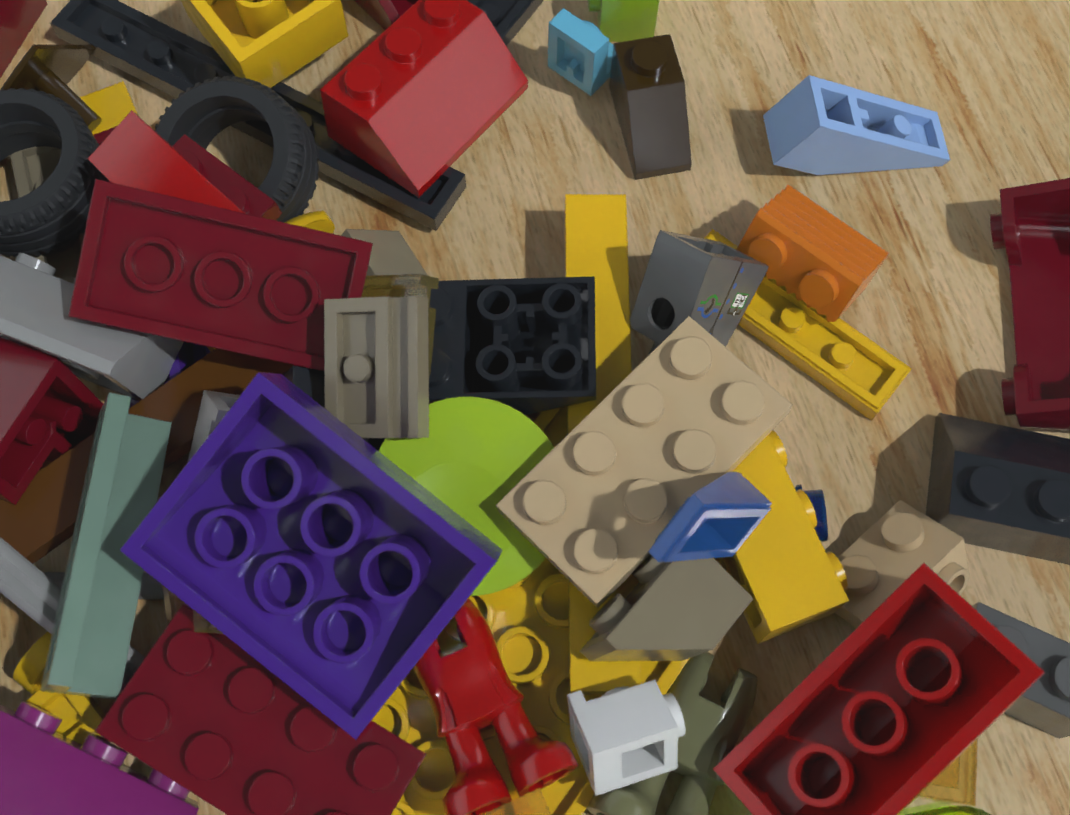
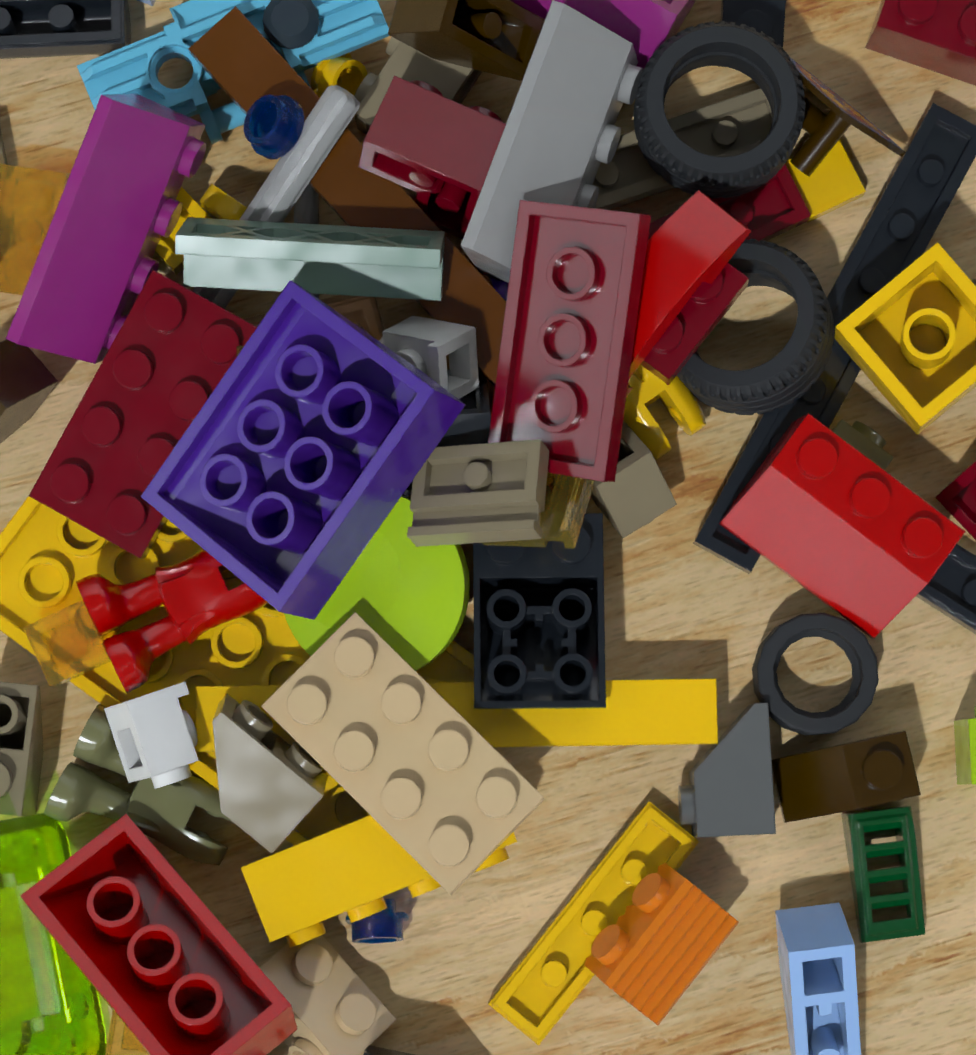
camera: 90 degrees right, 15 degrees up
(559, 95) = (862, 662): none -> black tyre
(579, 51) = (917, 702): medium azure bracket -> none
(661, 190) = (733, 781): none -> dark grey slope
(696, 281) = (599, 814): dark grey torso -> none
(712, 521) = (327, 812): blue slope -> none
(718, 70) = (905, 846): none -> dark green slope

